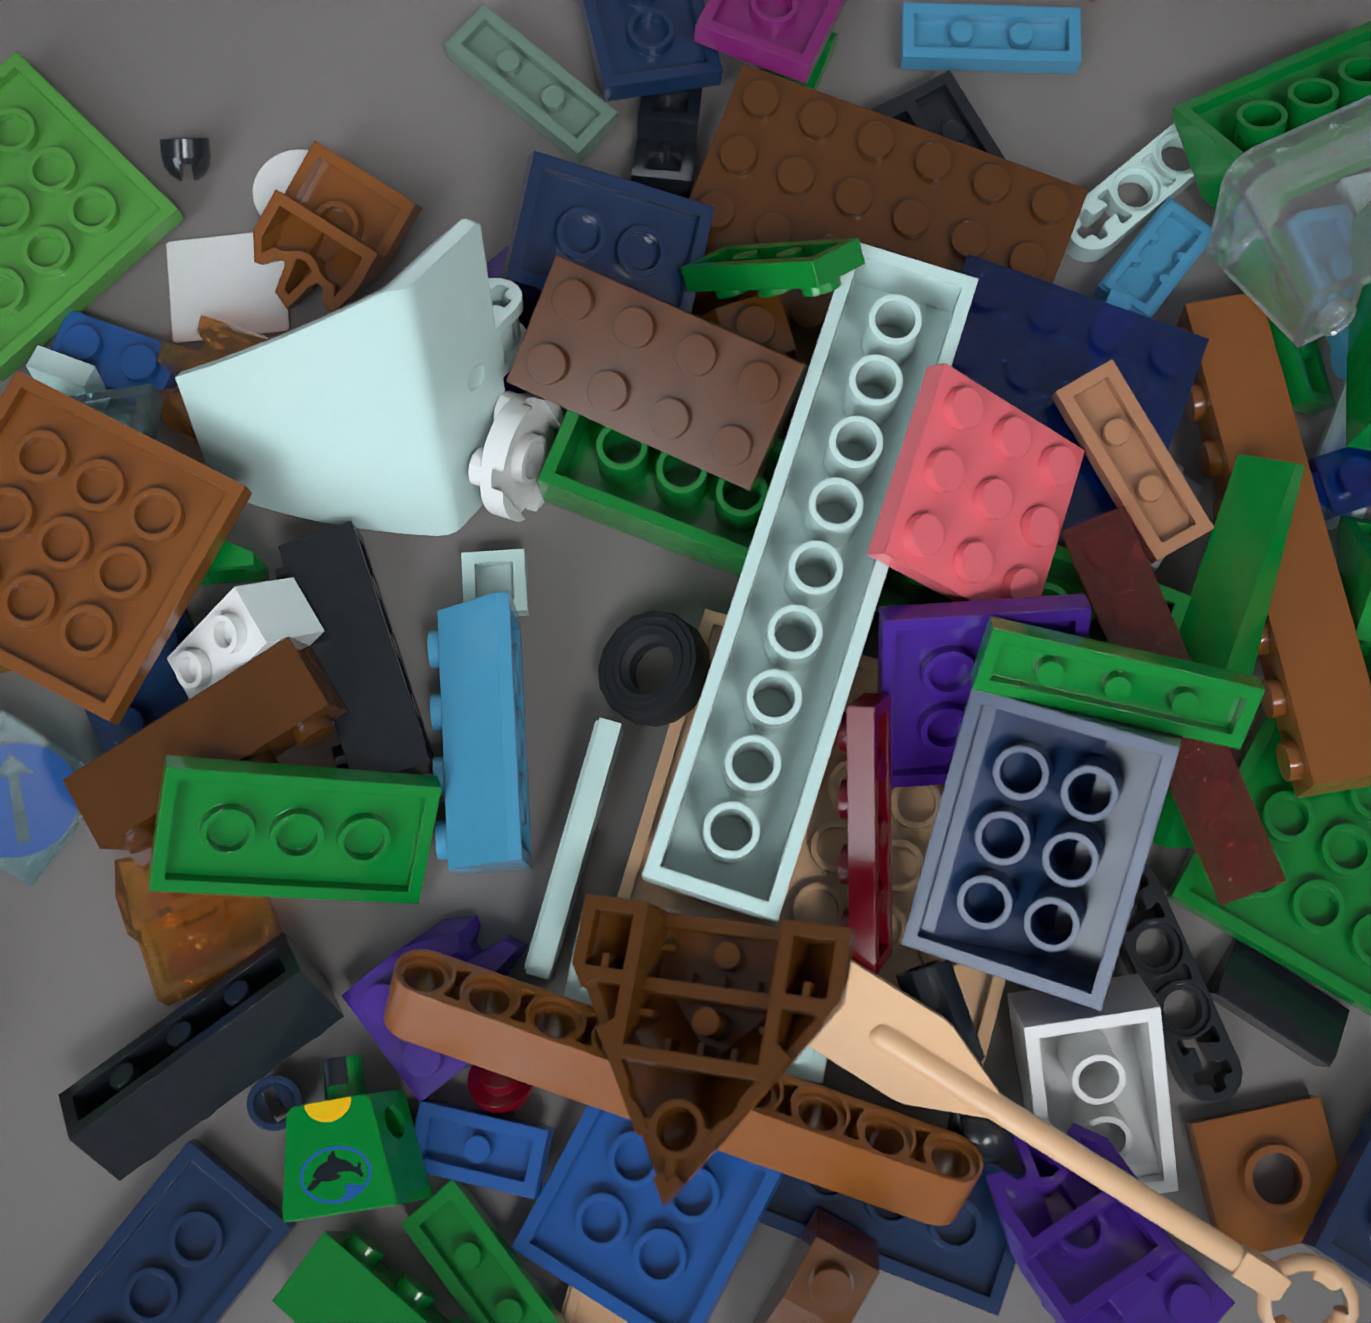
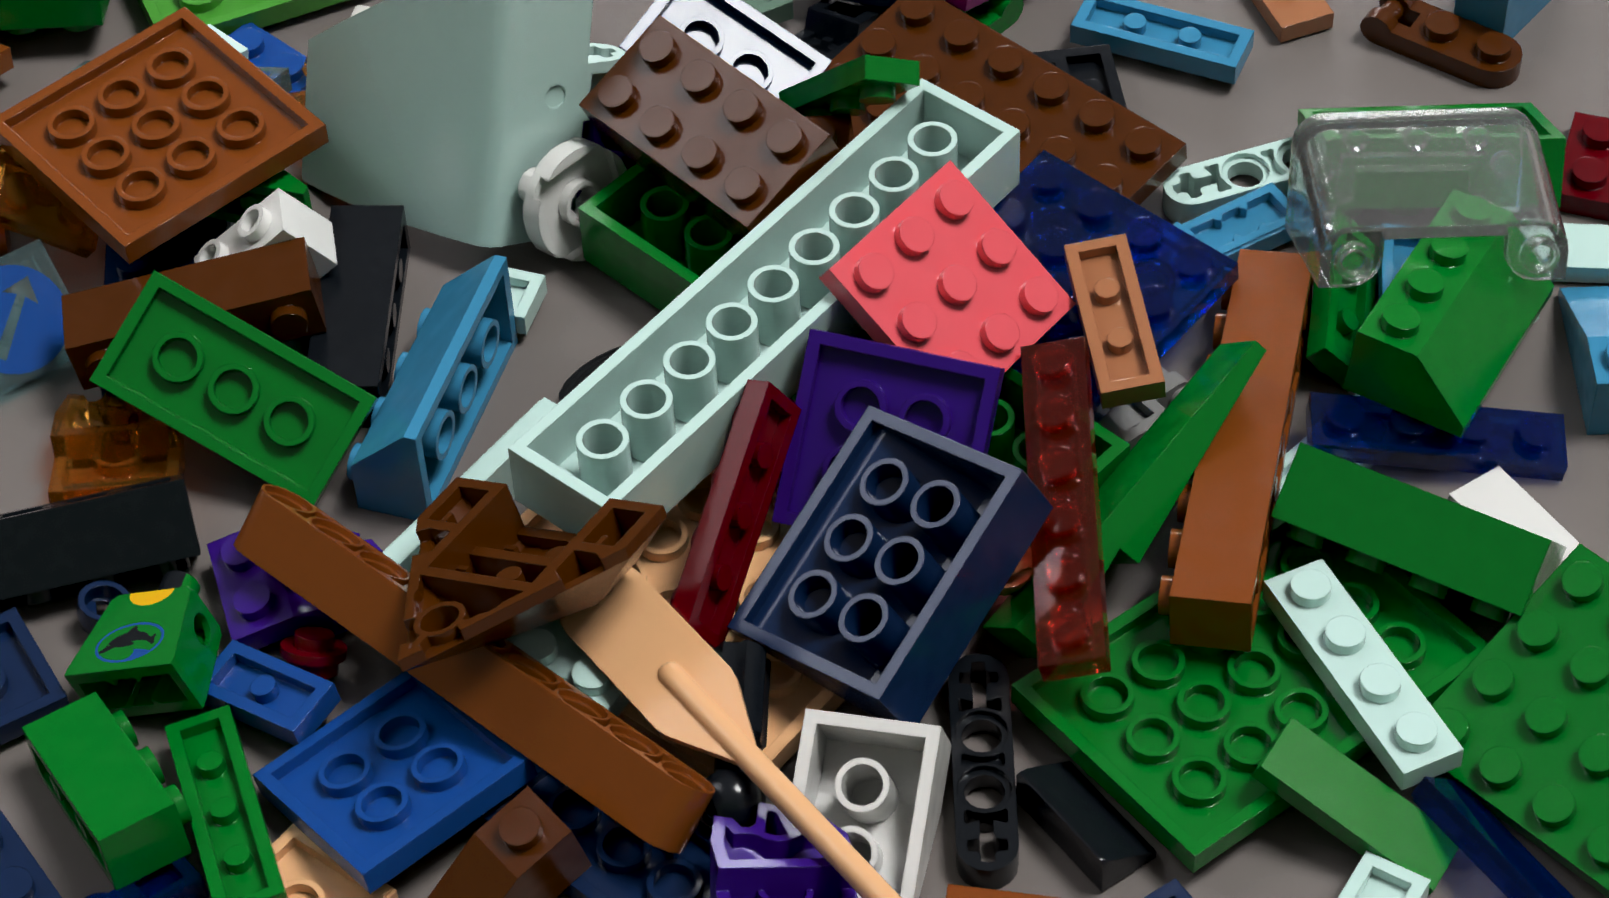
camera: 25 degrees right, 30 degrees down
(1116, 683) = (970, 414): green plate -> none

